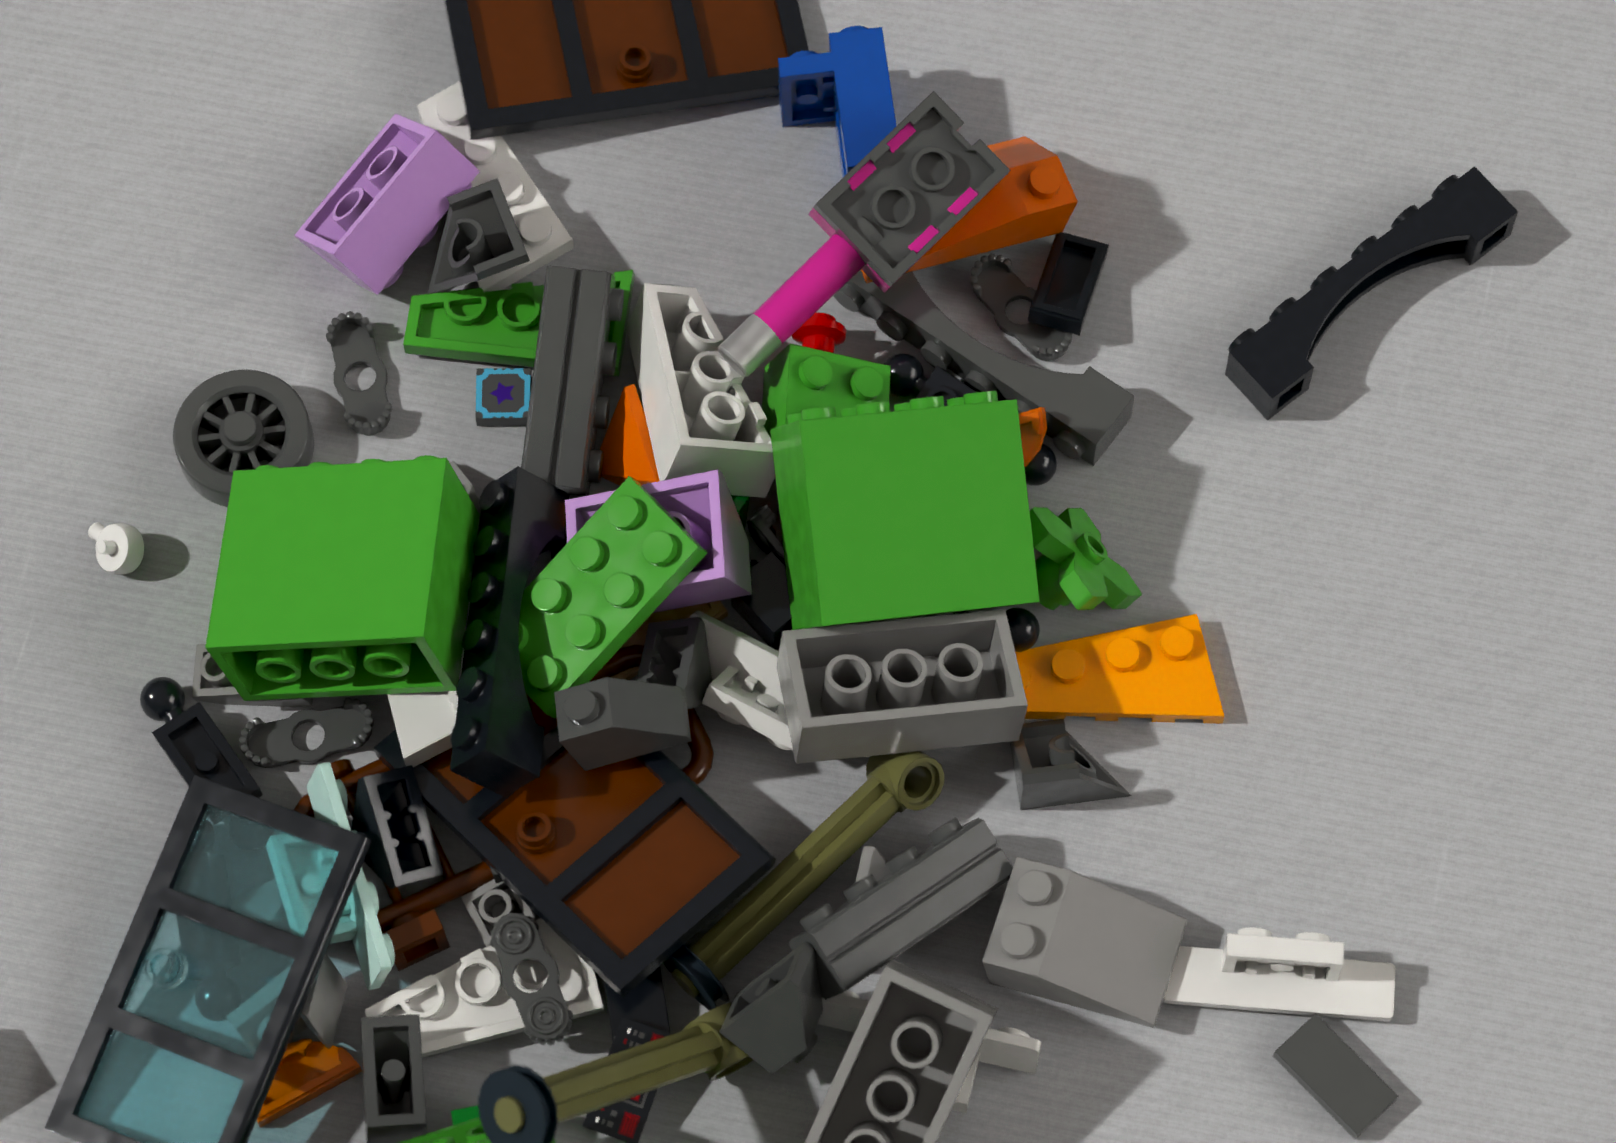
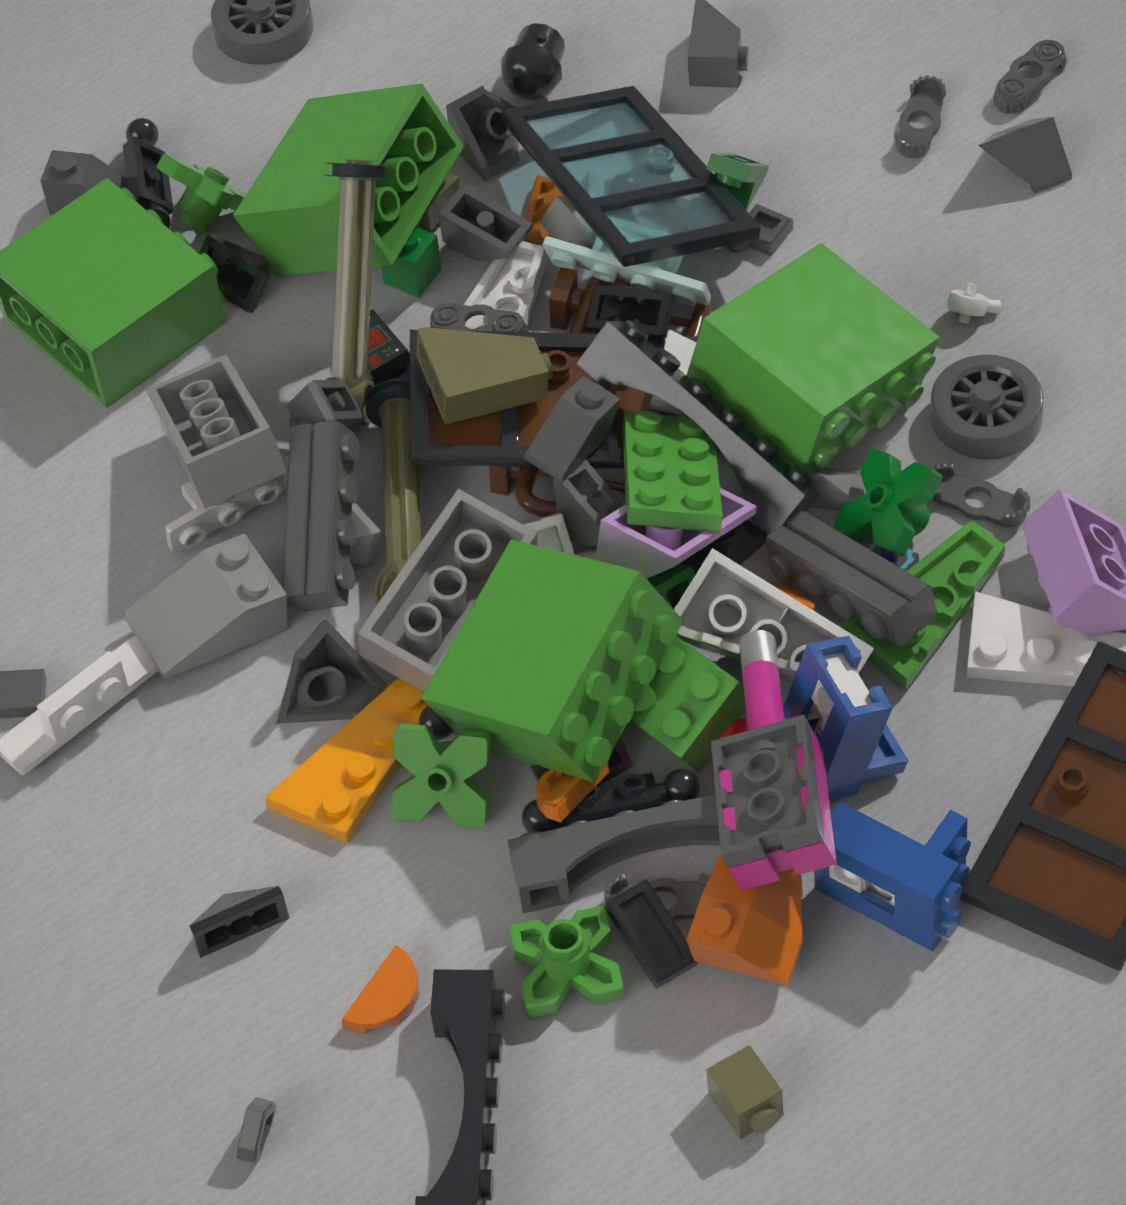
camera: 135 degrees right, 15 degrees down
(105, 898) = (738, 175): none -> green slope
(149, 827) = (773, 231): none -> dark grey tile
(193, 738) = (753, 263): black plate -> none
(453, 410) = (893, 503): none -> green plant
(477, 238) = (995, 593): dark grey slope -> none
(627, 860) = (481, 371): none -> olive slope
(747, 247) = (844, 716): none -> blue brick
(1150, 96) = (745, 1092): none -> olive brick
(1154, 327) = (566, 959): none -> bright green plant
(1312, 449) = (387, 996): none -> orange tile
(1358, 634) = (238, 917): none -> black slope
(1525, 437) = (255, 1129): none -> dark grey tile

